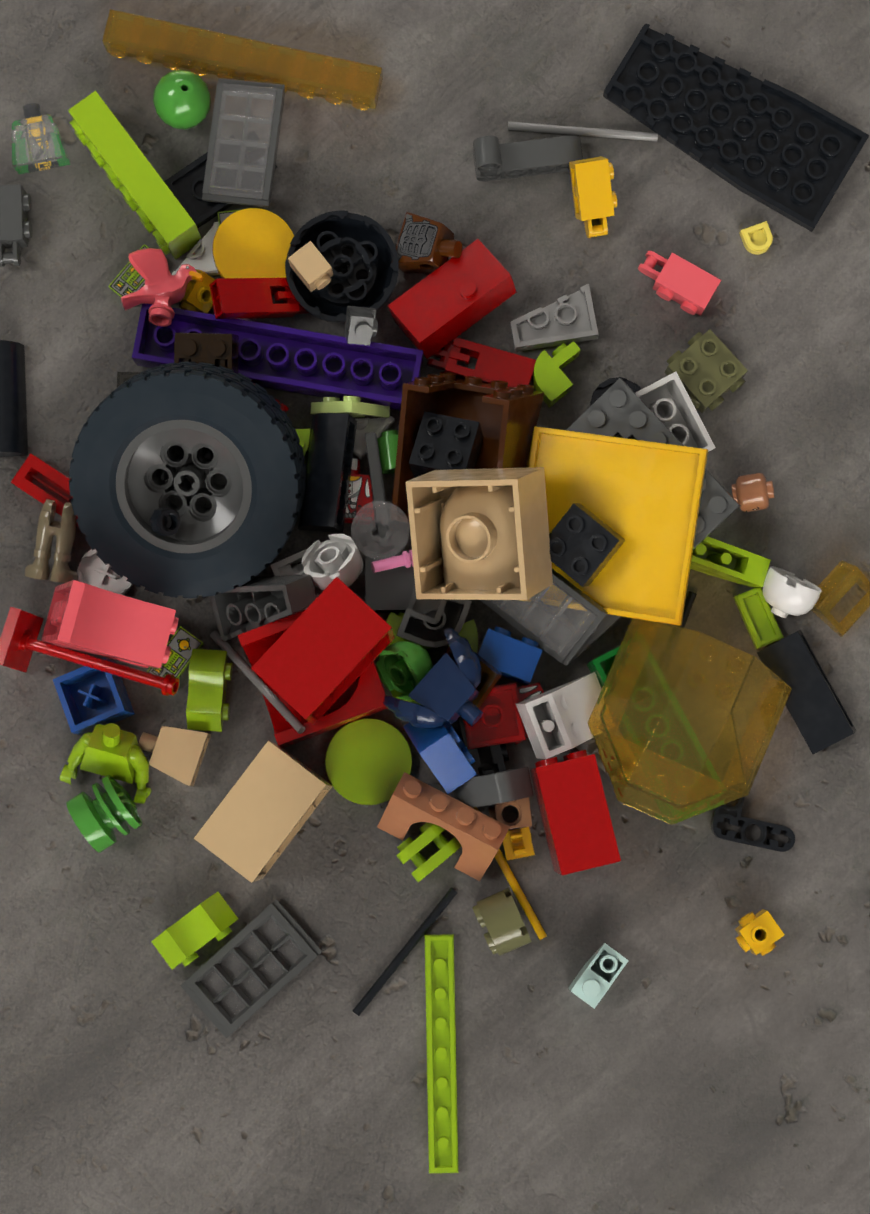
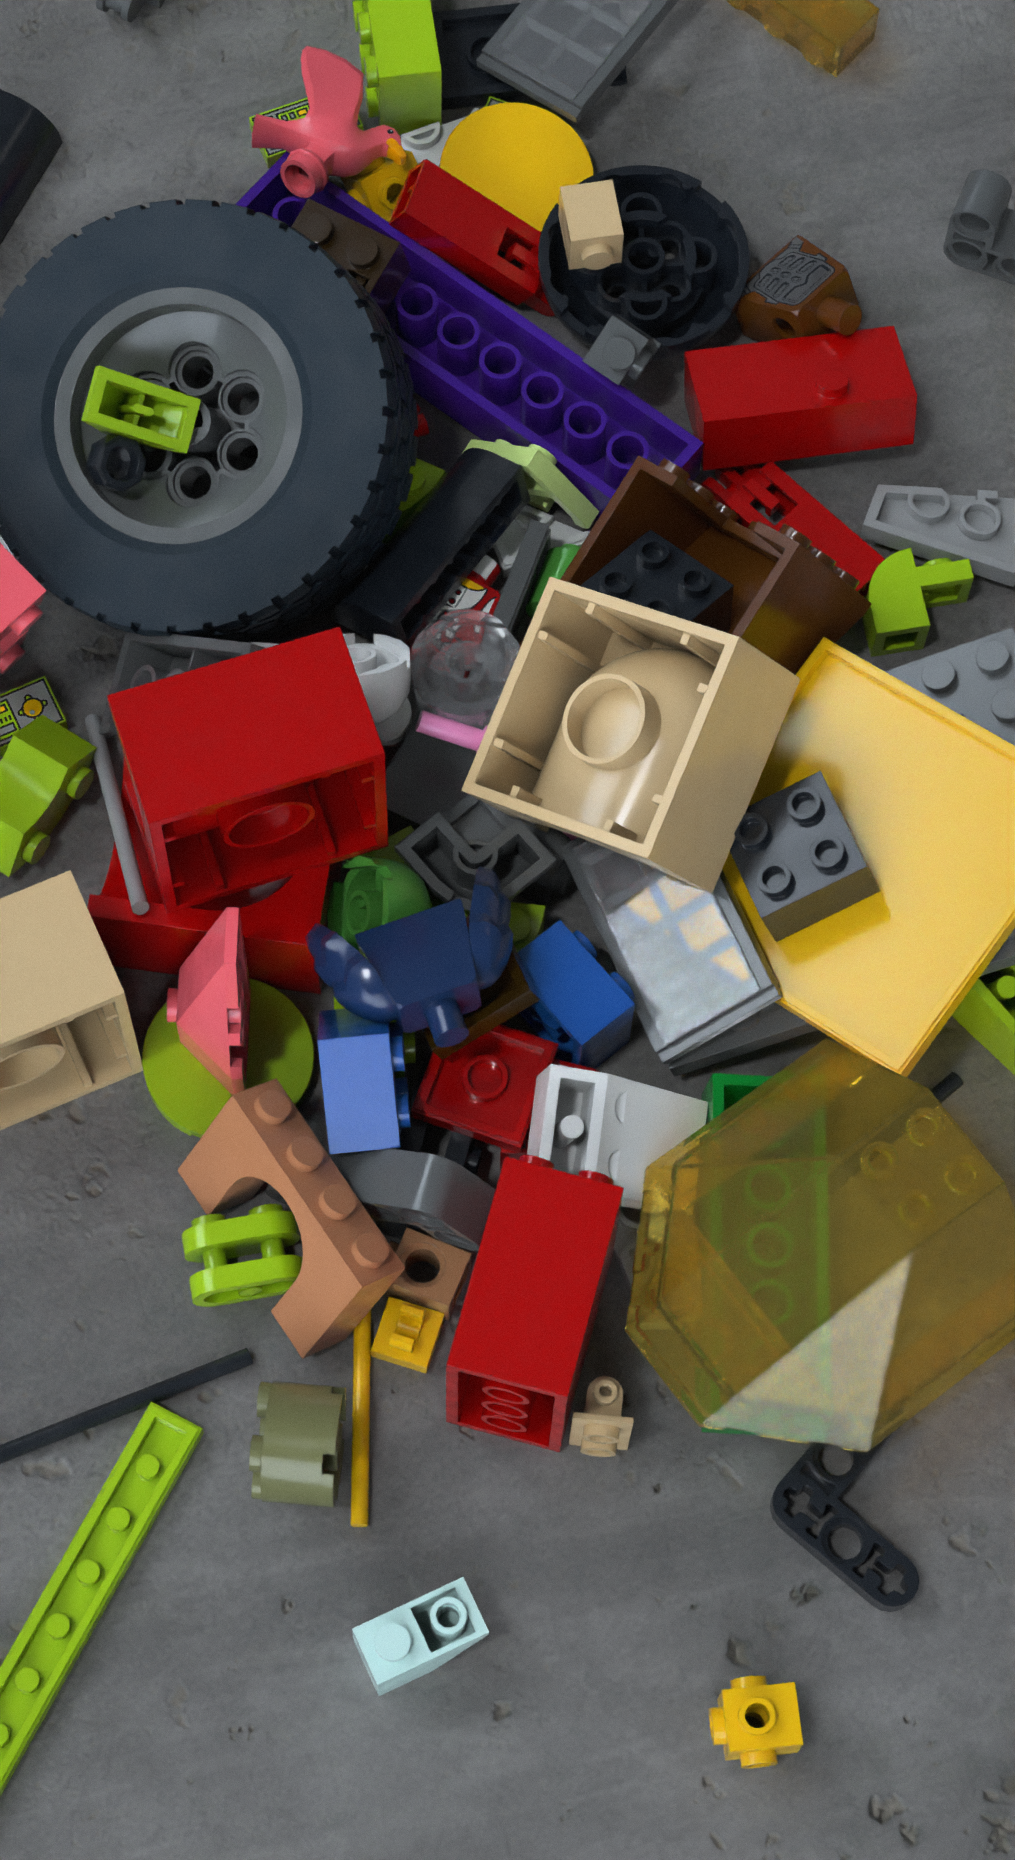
camera: 25 degrees right, 15 degrees down
(164, 492) = (140, 410): none -> lime slope
(355, 751) = (215, 1002): none -> coral wedge
(626, 840) = (601, 1426): none -> tan hinge

